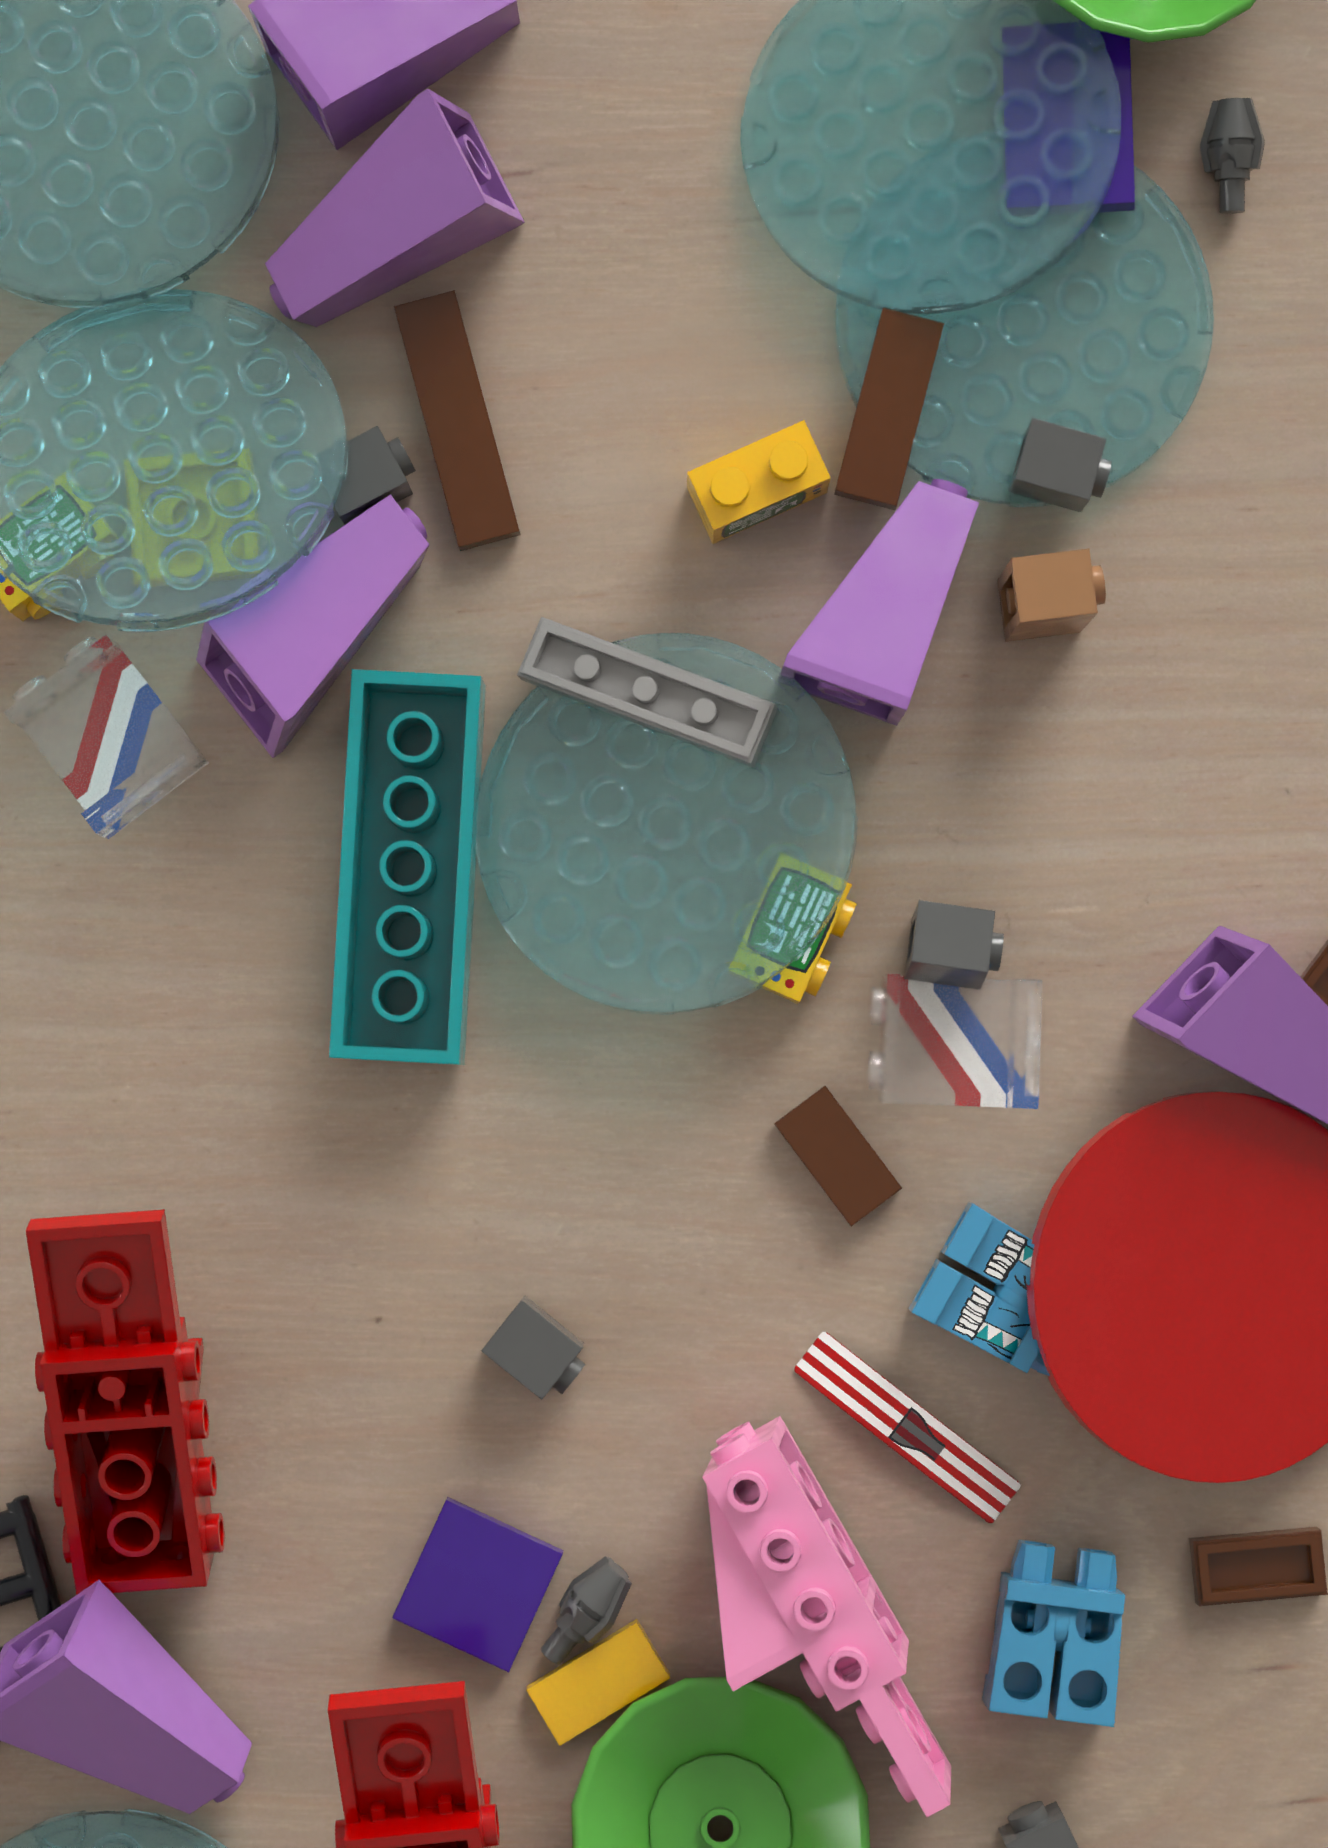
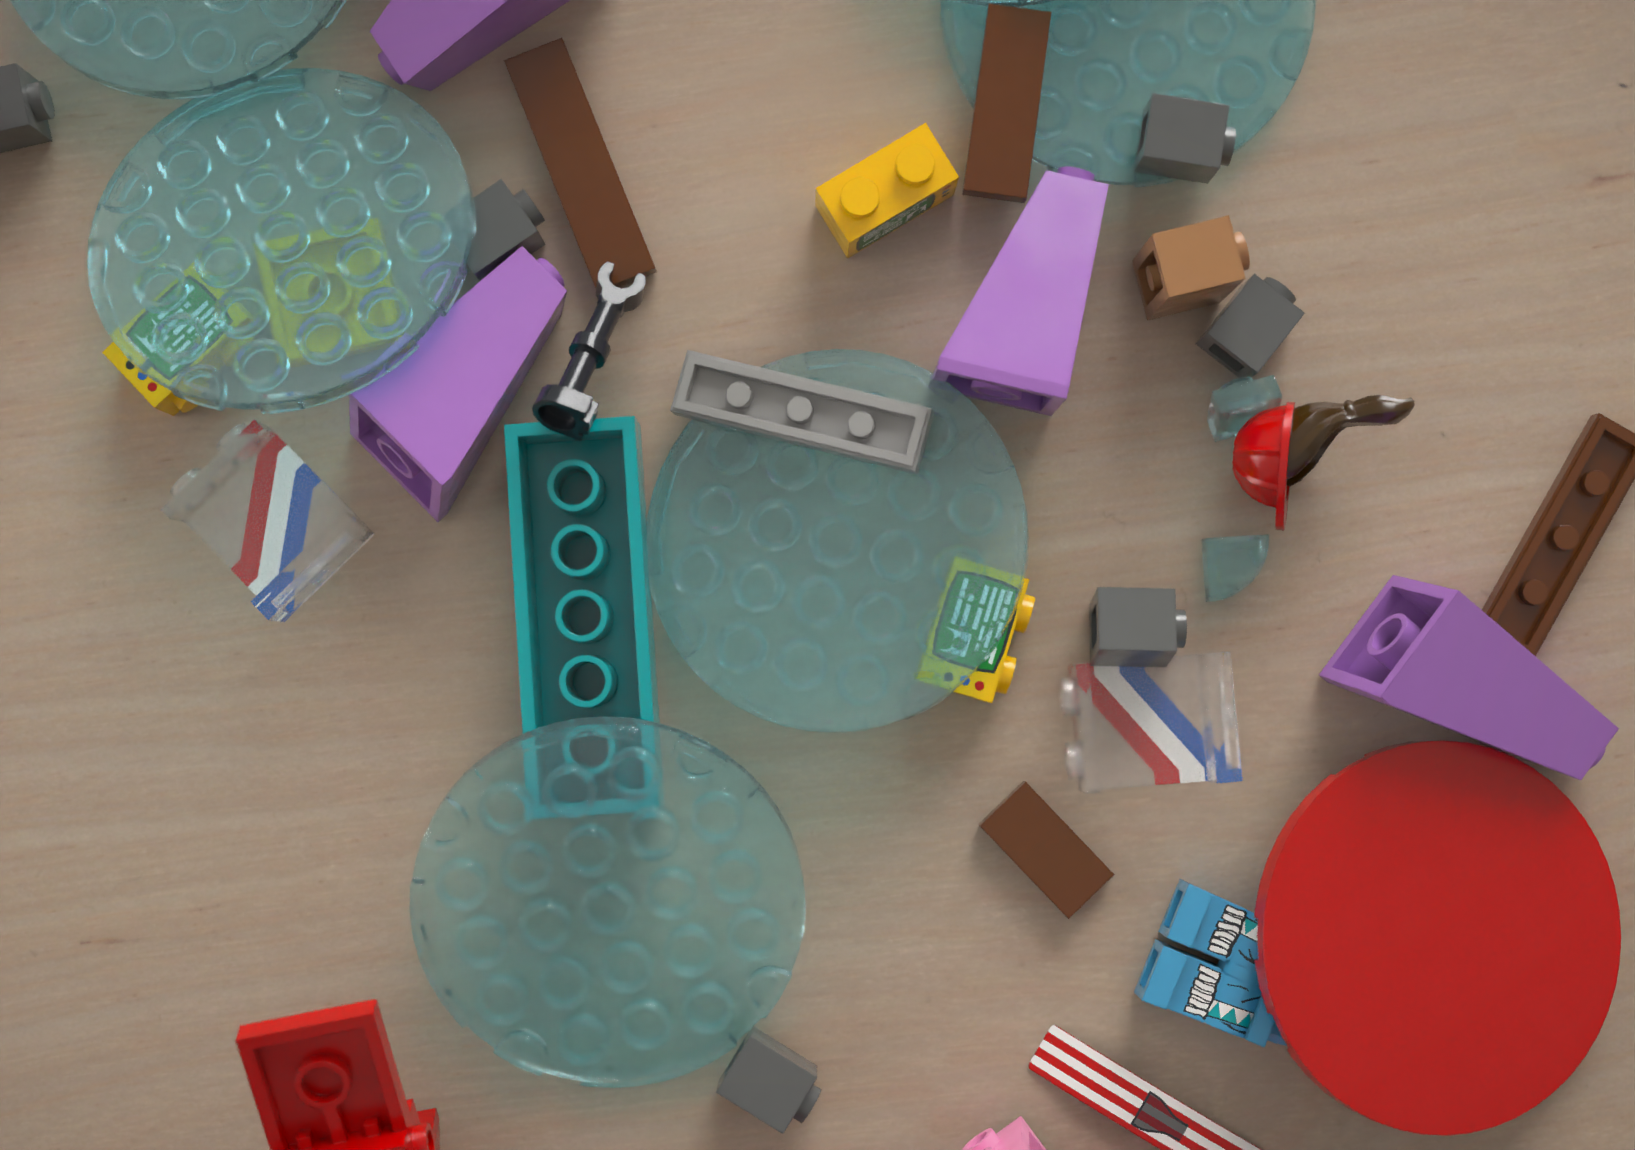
camera: 15 degrees left, 0 degrees up
(398, 1151) = (608, 901): none -> clear light blue tile
(413, 657) = (565, 406): none -> black piece
(1058, 894) = (1232, 563): none -> clear light blue tile
(1088, 739) = (1240, 401): none -> clear light blue plate
(1106, 659) = (1251, 326): none -> dark grey brick
(1129, 779) = (1288, 442): none -> piece

